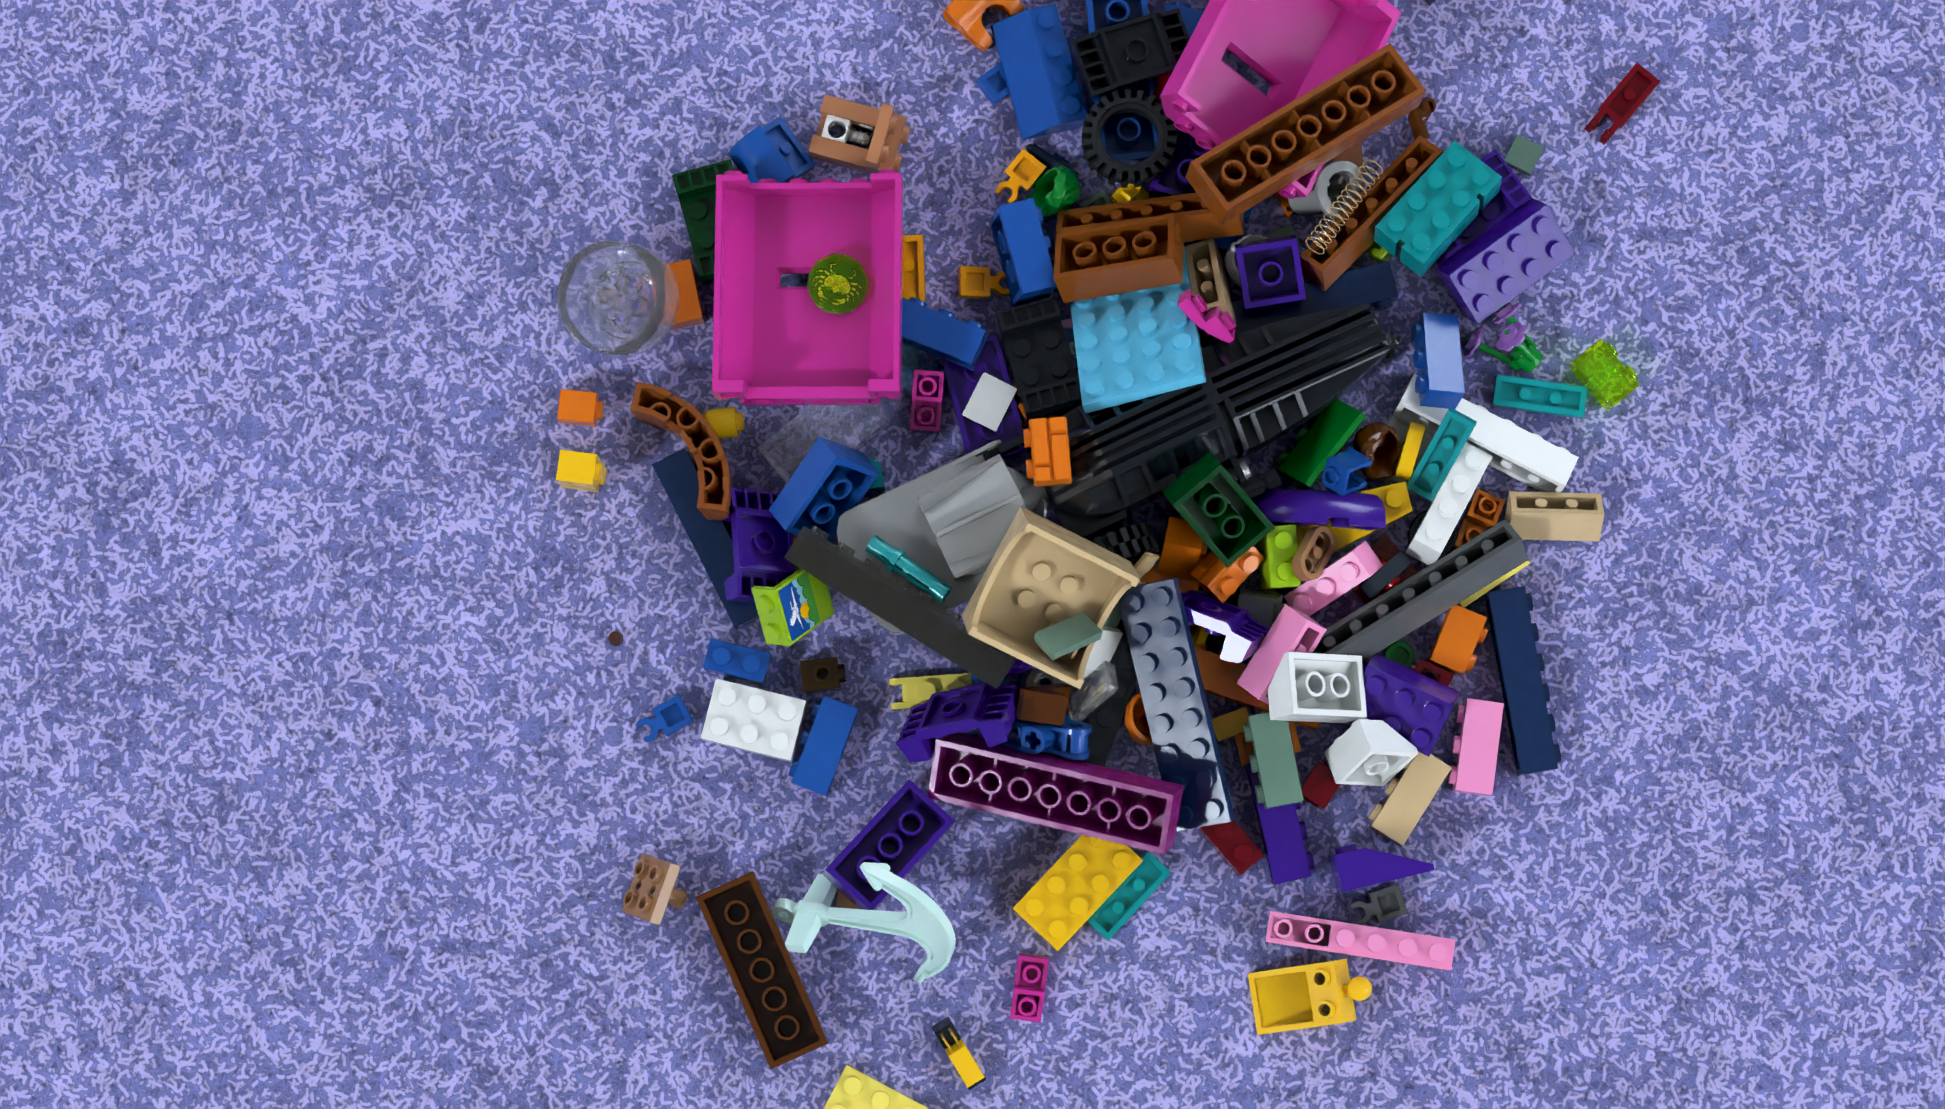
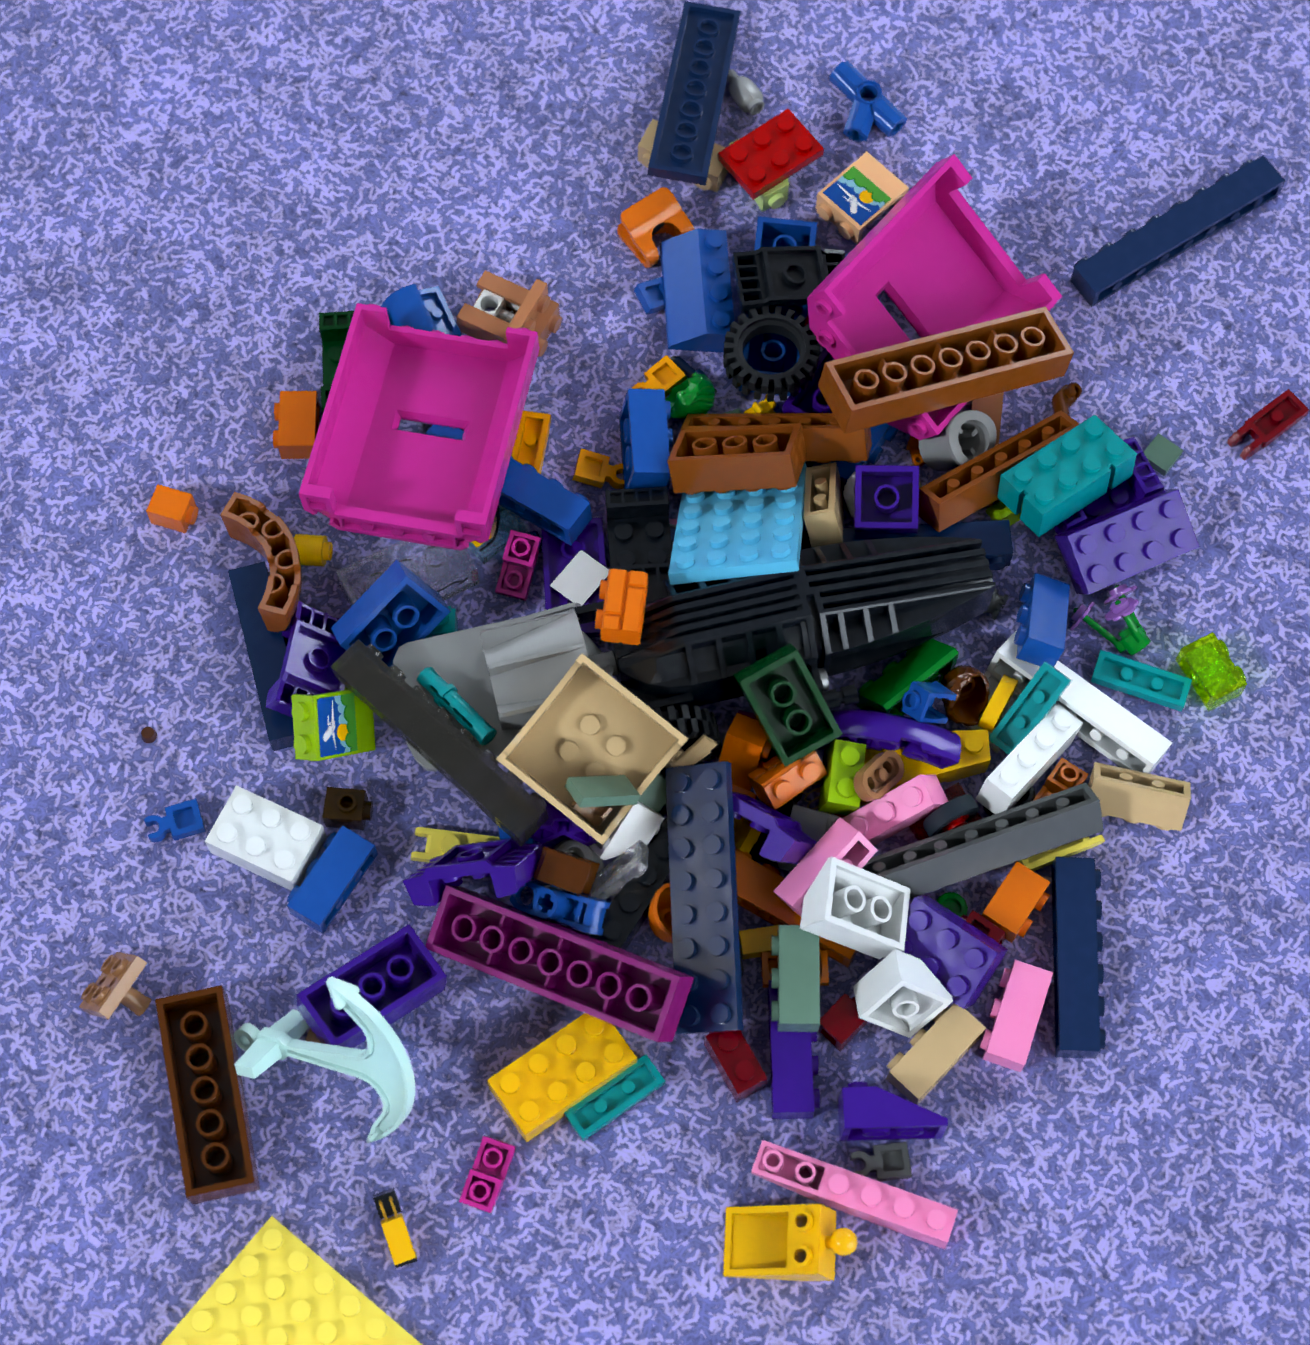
camera: 10 degrees right, 15 degrees down
(580, 471) = (154, 563): yellow brick -> none
(587, 291) = (218, 396): clear wheel -> none
(737, 661) = (264, 777): blue brick -> none
(837, 284) = (452, 431): clear neon green tile -> none
(1214, 322) = (821, 525): dark pink slope -> none
(1308, 238) = (933, 468): tan piece -> none

